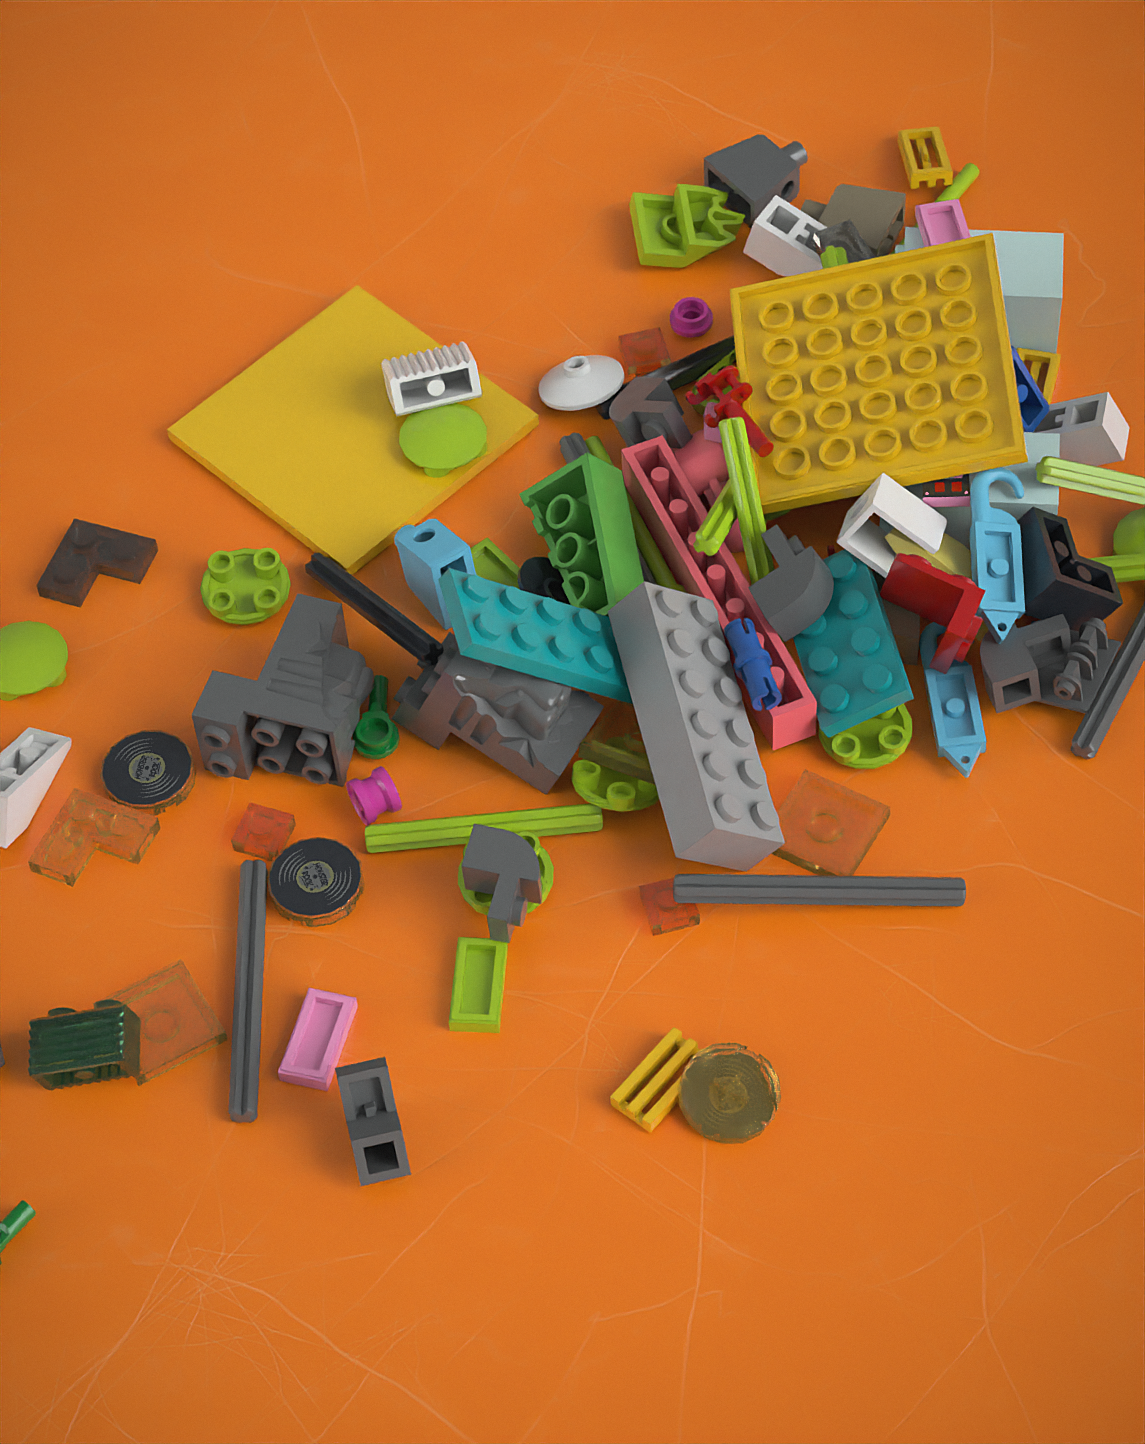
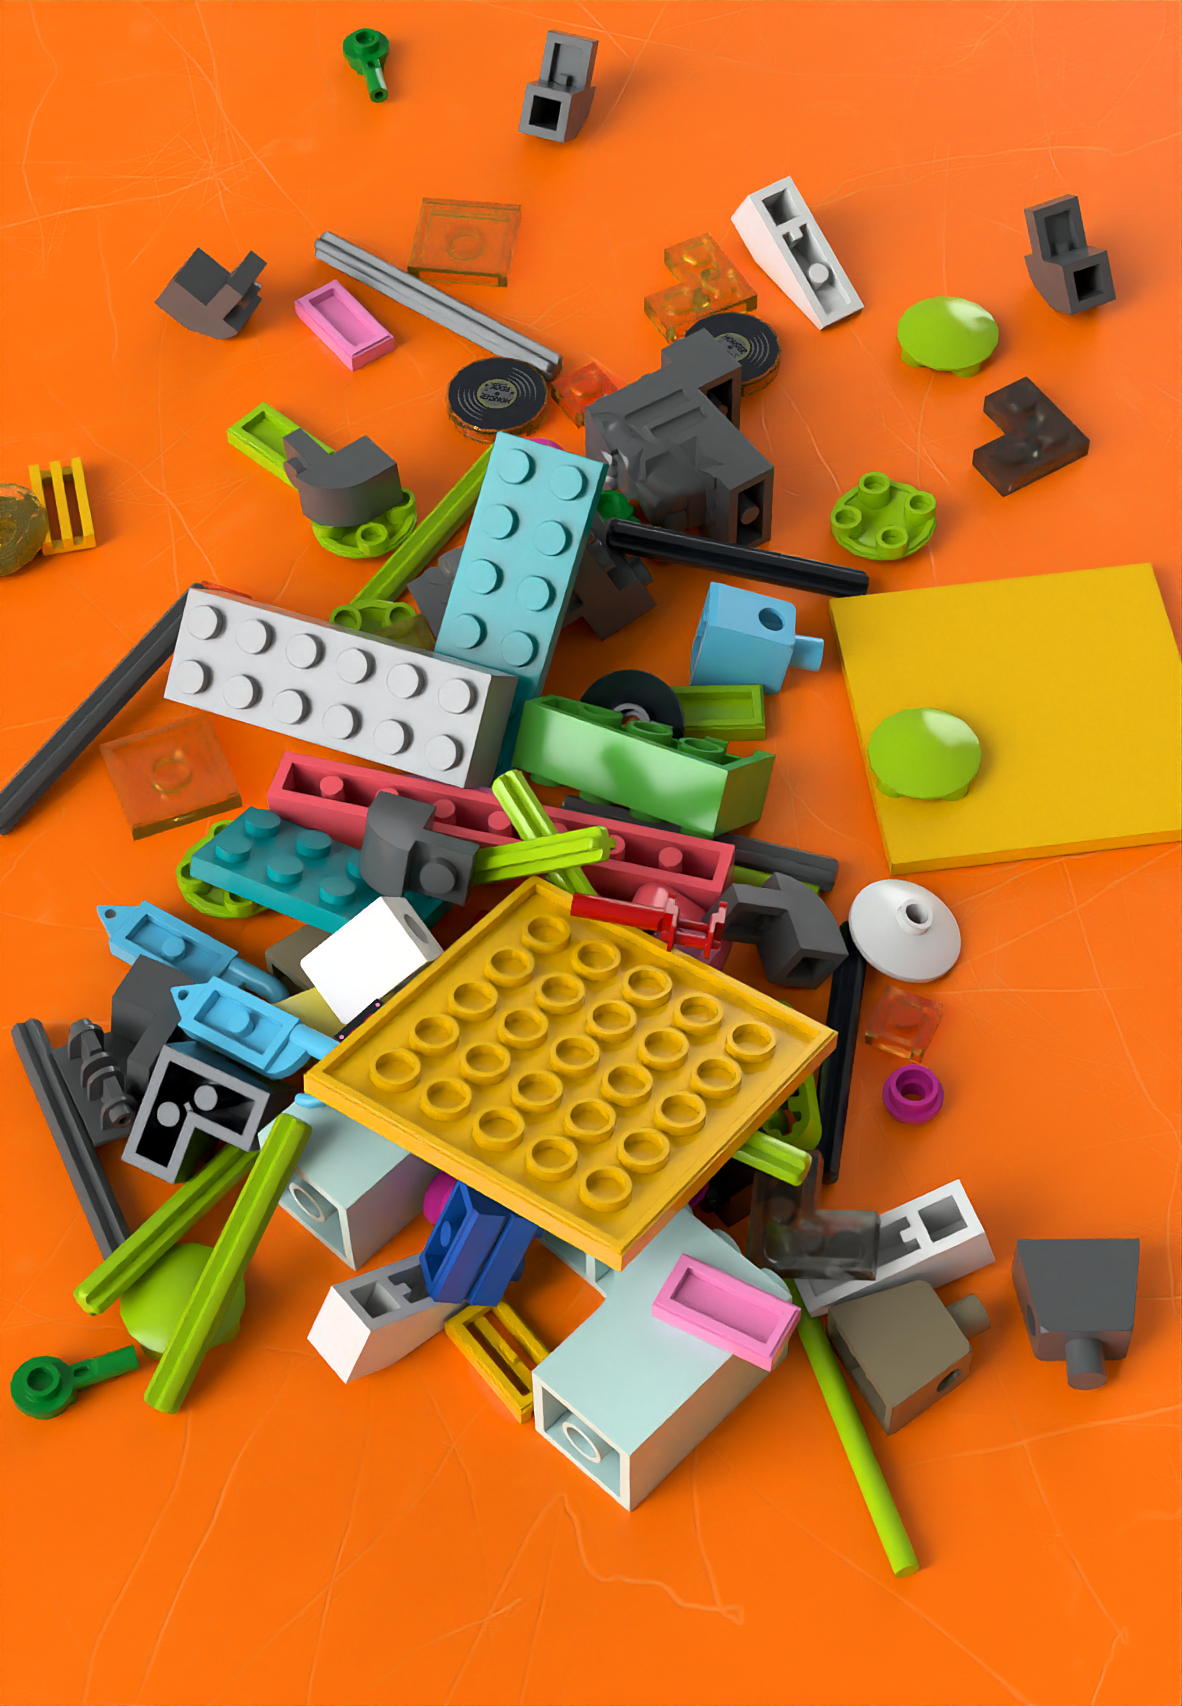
camera: 125 degrees right, 0 degrees up
(84, 1045) = (473, 167): clear green brick -> none
(431, 379) = (1002, 770): white brick -> none
(682, 226) = (1063, 1169): lime plate -> none
(752, 664) = (348, 757): blue pin -> none
(927, 173) = (954, 1541): yellow tile -> none
(939, 598) = (259, 940): red bracket -> none

